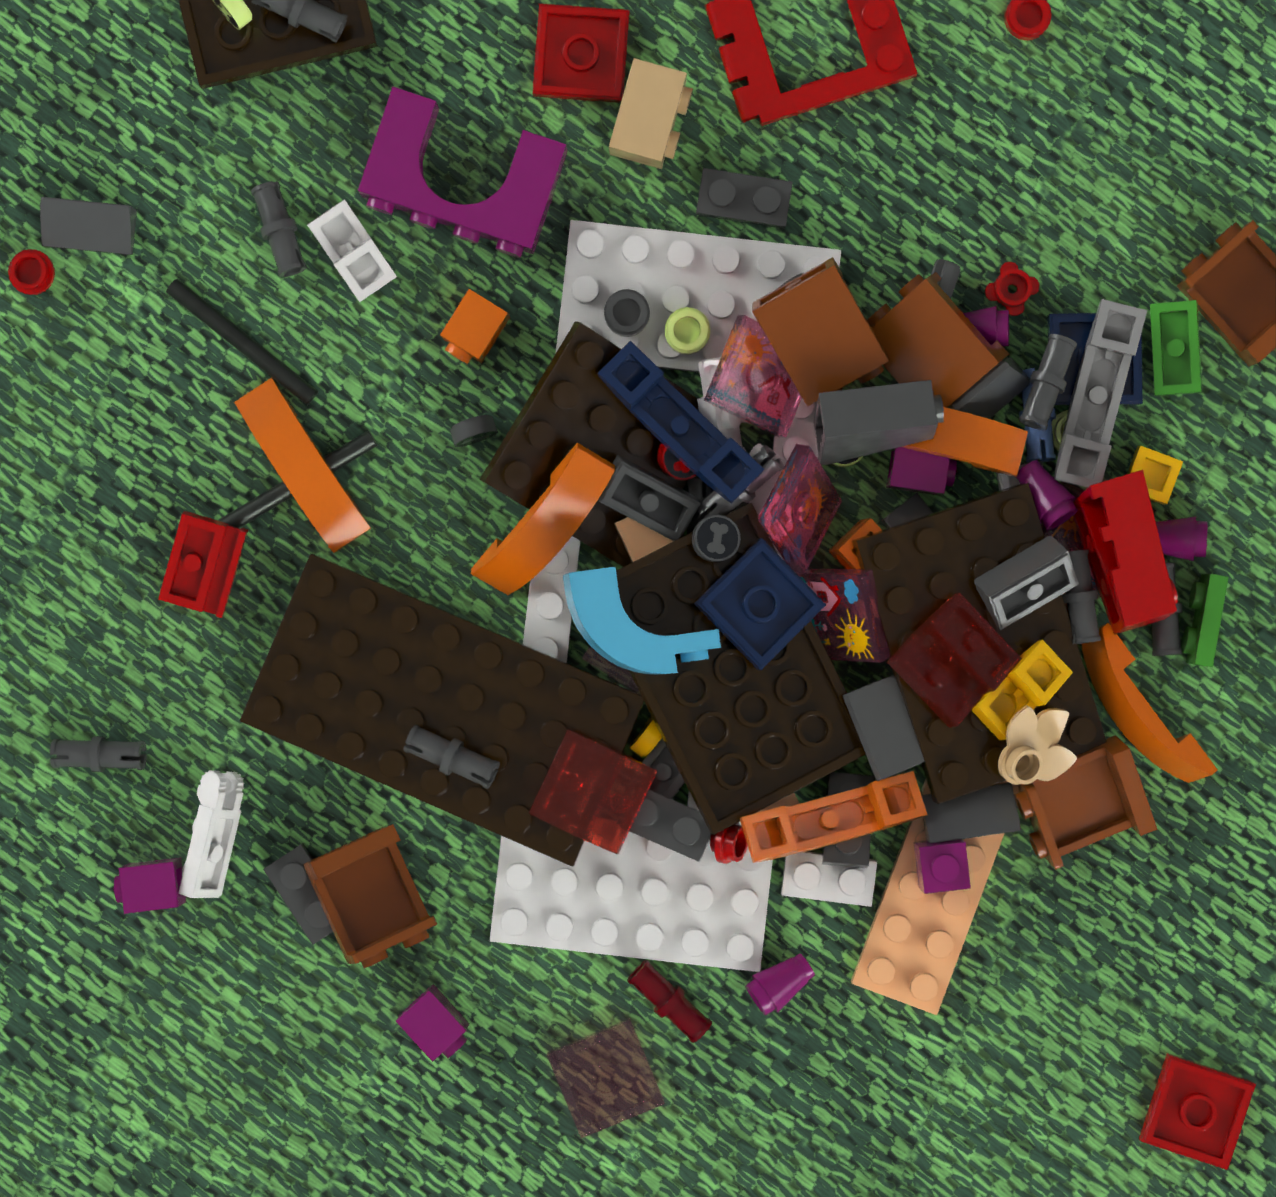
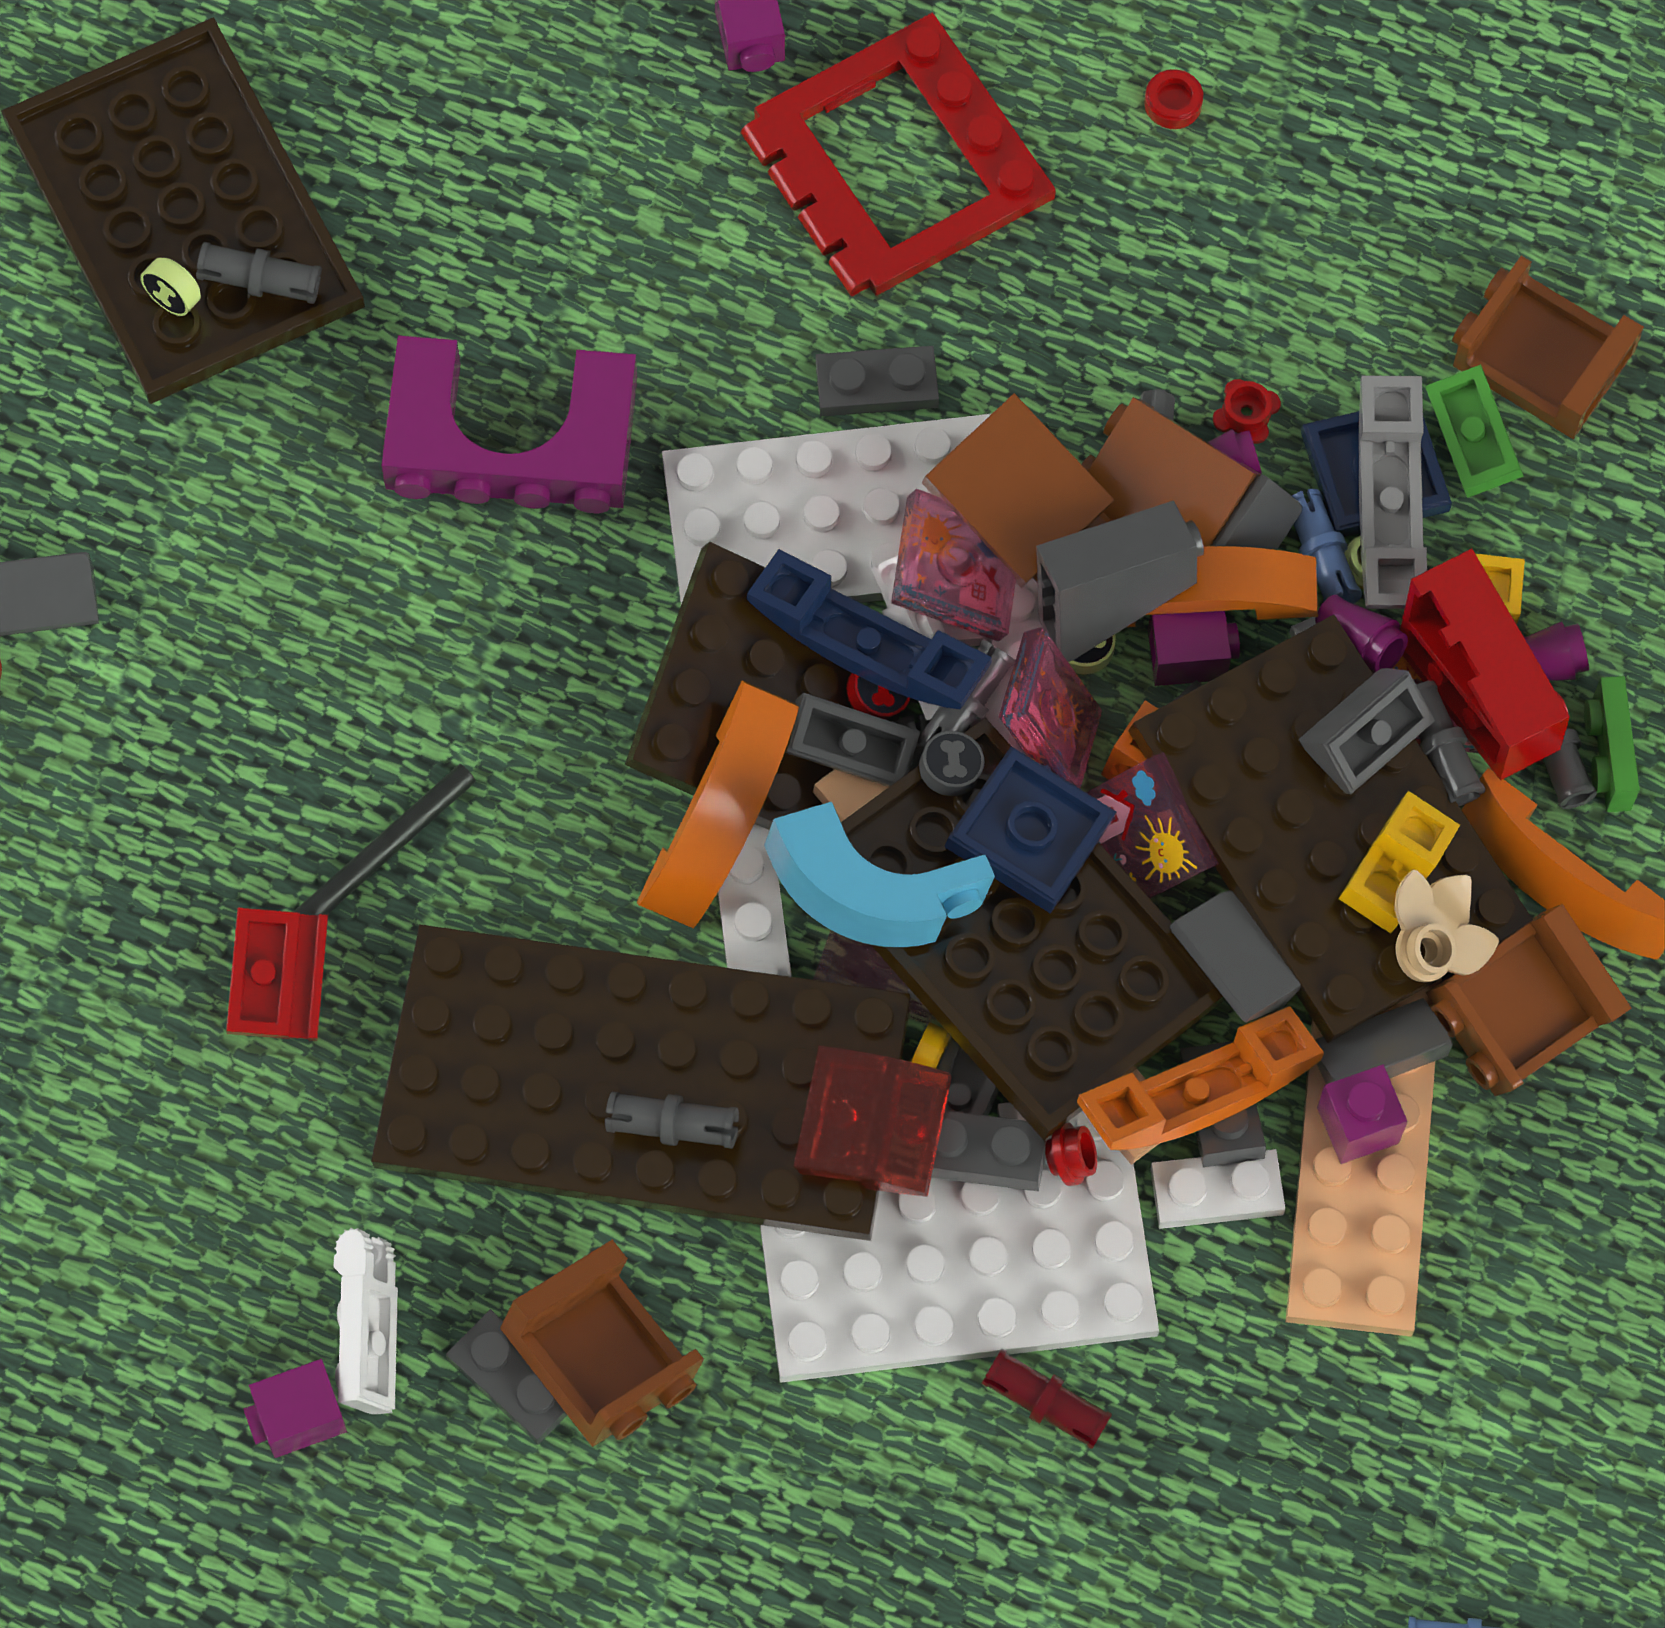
camera: 15 degrees left, 20 degrees down
(98, 754) = (185, 1255): dark grey pin -> none
(241, 341) = (267, 694): pearl dark grey bar -> none
(278, 229) = (286, 544): dark grey pin -> none
(301, 465) = (384, 825): orange slope -> none
(352, 250) = (387, 551): white slope -> none
(434, 1024) = (731, 1503): magenta brick -> none
(473, 430) = (599, 728): dark grey tile -> none
(474, 328) = (569, 602): orange brick -> none
(581, 53) = (626, 259): red tile -> none
(605, 1078) = (986, 1528): tile -> none
(627, 313) = (761, 533): dark grey tile -> none
(649, 114) = (730, 302): tan brick -> none
(687, 331) = (847, 541): yellowish green tile -> none
(779, 984) = (1188, 1340): magenta cone -> none
(954, 660) = (1302, 839): clear red slope -> none
(1048, 382) = (1323, 496): dark grey pin -> none

